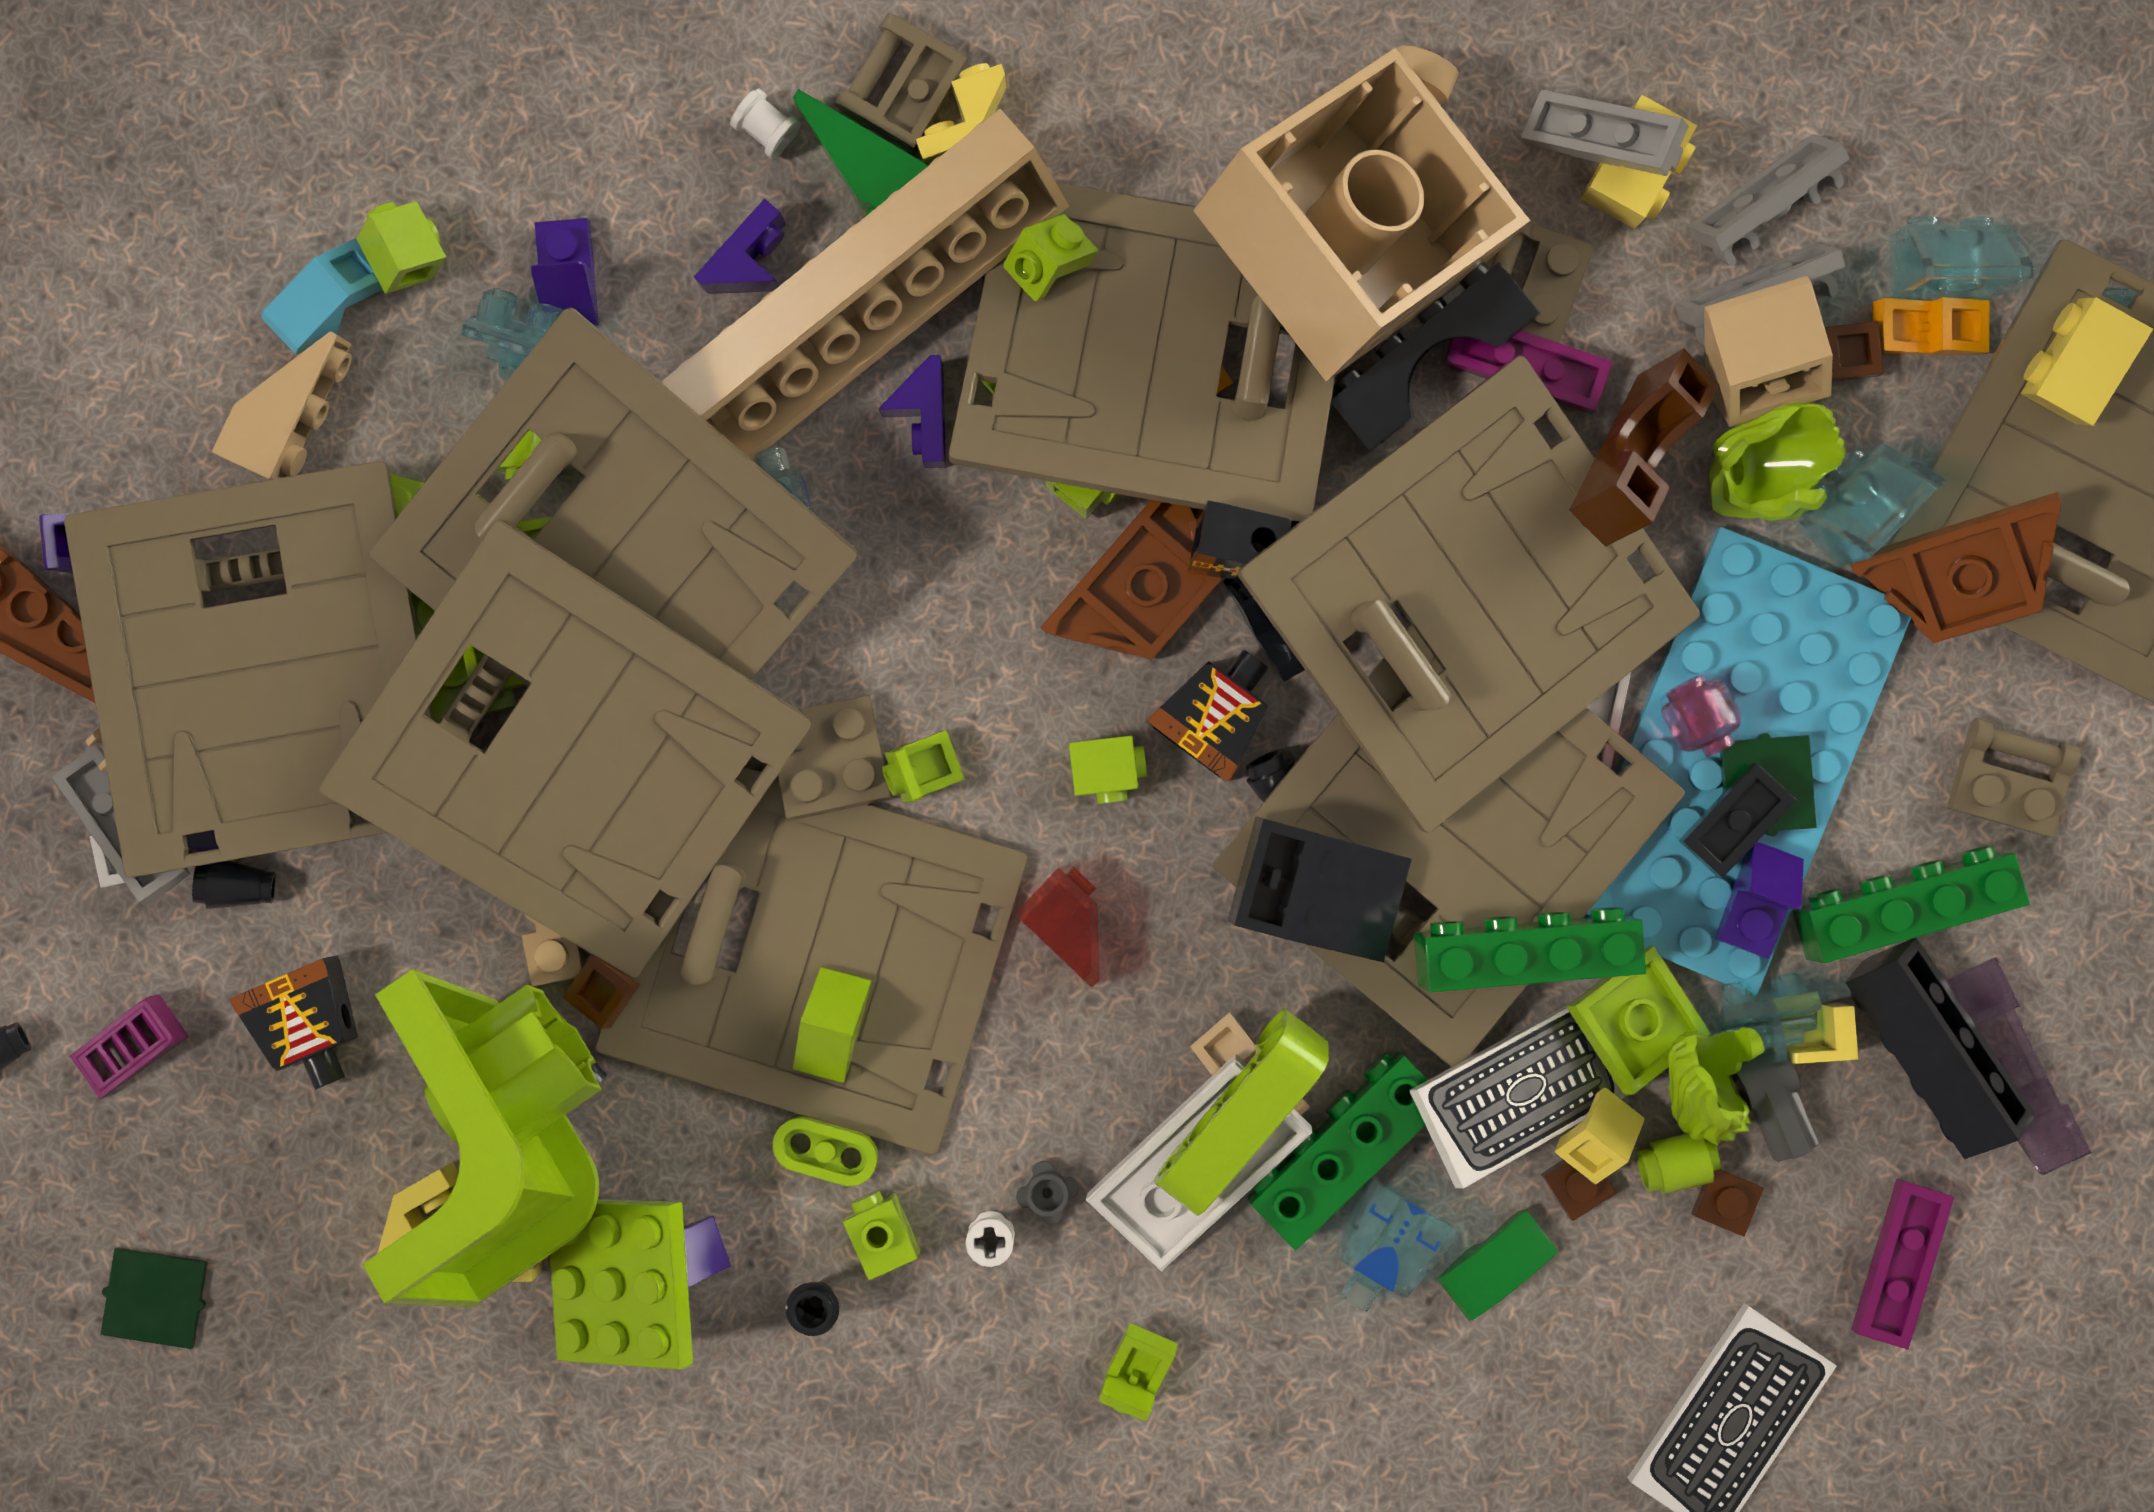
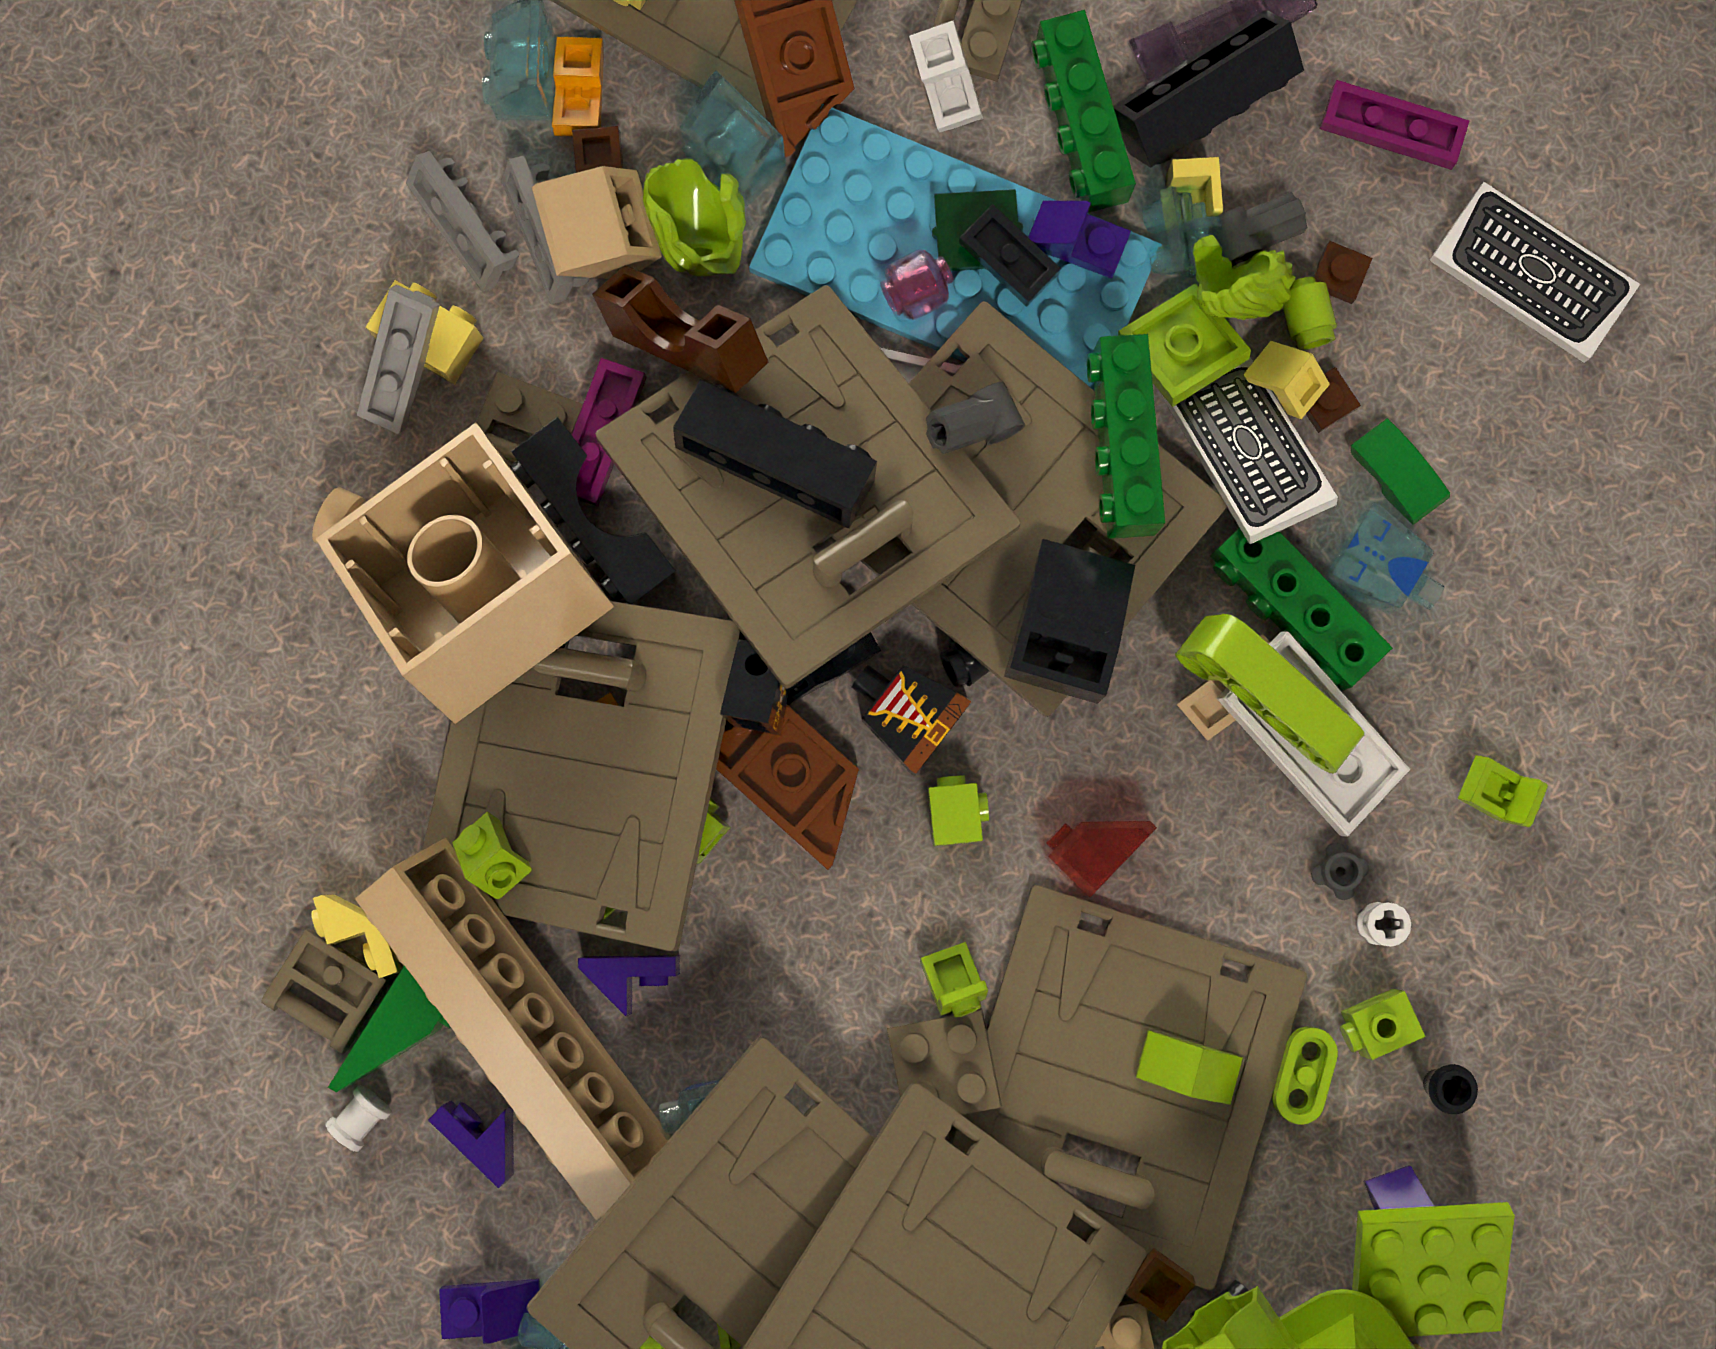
camera: 85 degrees left, 5 degrees down
(1502, 556) = (775, 453): none -> black brick
(1549, 791) = (983, 416): none -> dark grey piece
(1949, 747) = (946, 76): none -> white slope

